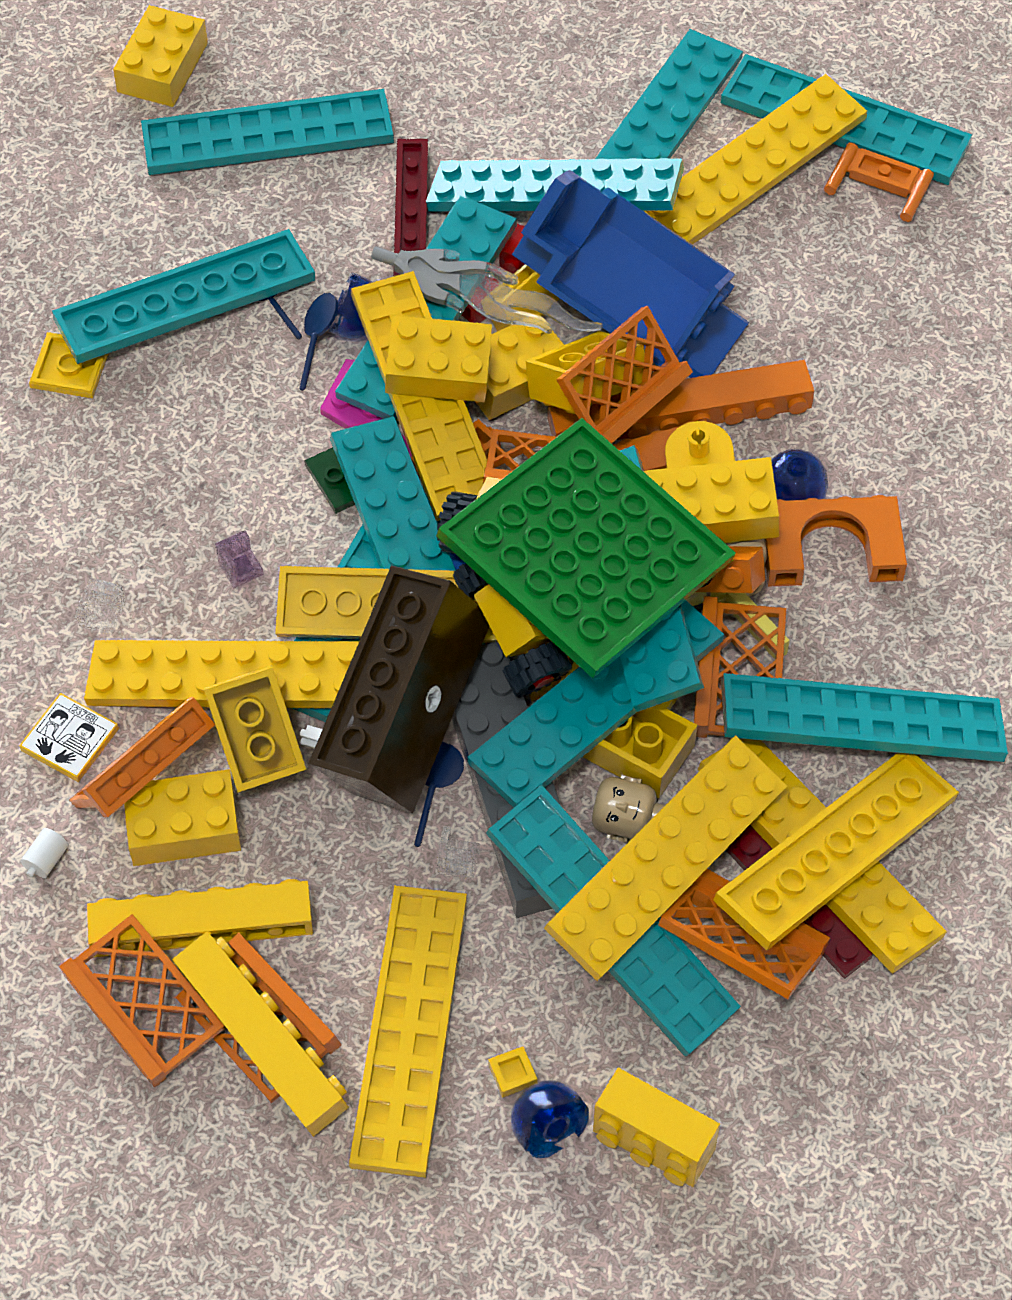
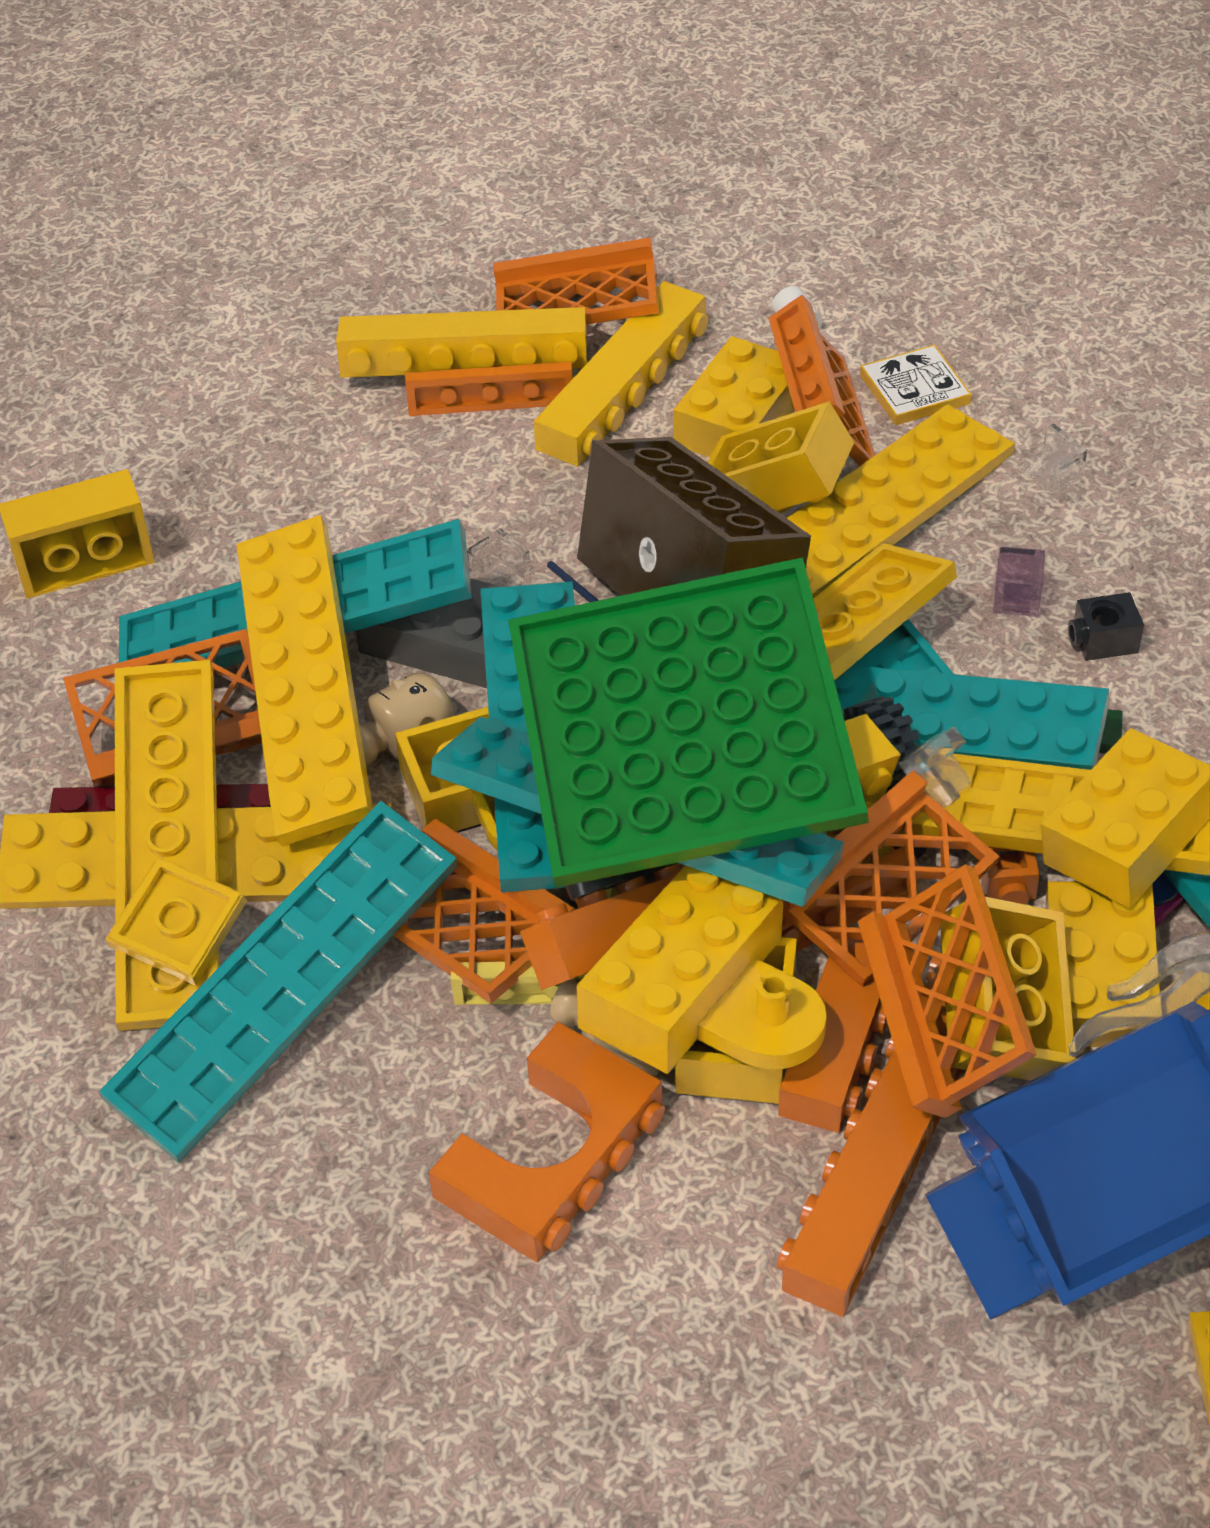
camera: 130 degrees right, 10 degrees down
(239, 487) = (1106, 626): none -> black brick
(408, 1032) = (368, 451): yellow plate -> none
(465, 473) = (939, 766): none -> clear panel
(512, 1071) = (250, 496): yellow plate -> none
(551, 1112) = (183, 483): clear blue cylinder -> none
(799, 475) = (674, 1170): clear blue cylinder -> none
(882, 796) = (176, 920): none -> yellow tile

